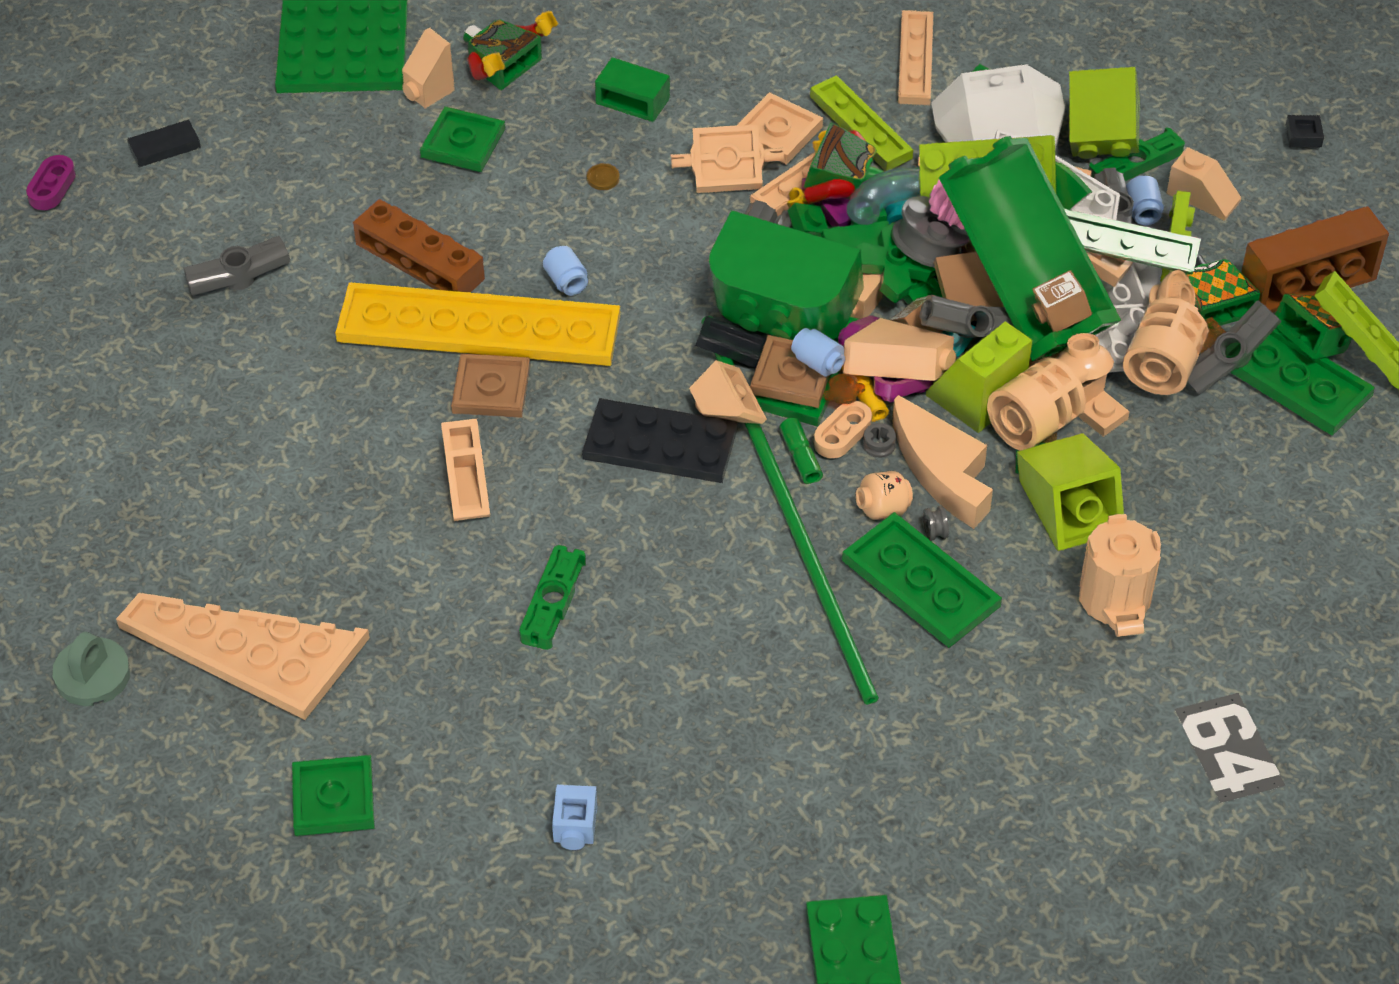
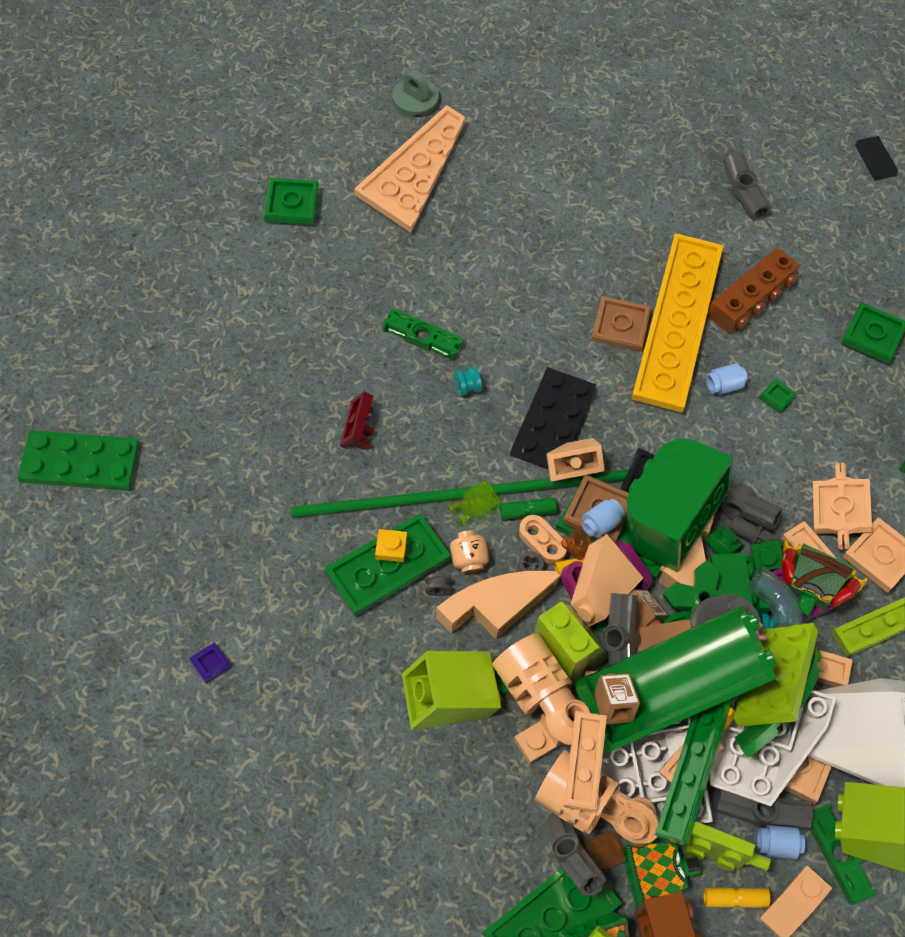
camera: 95 degrees right, 10 degrees up
(48, 188) = (836, 93): magenta plate -> none
(465, 469) = (539, 295): light nougat slope -> none
(574, 227) = (777, 396): none -> green tile
(574, 816) = (237, 318): light blue brick -> none
(603, 176) = (834, 424): pearl gold piece -> none
(625, 530) = (467, 381): none -> teal wheel
(717, 643) = (355, 426): none -> dark red plate
(809, 499) = (477, 500): none -> clear neon green plate
(902, 569) = (391, 545): none -> yellow plate
(1110, 747) = (210, 662): none -> dark purple tile
(1120, 574) = (348, 694): light nougat container -> none
(1146, 317) = (585, 761): none -> light nougat tile
(1212, 231) = (736, 897): none -> yellow piece
(1229, 747) = (190, 753): sticker -> none

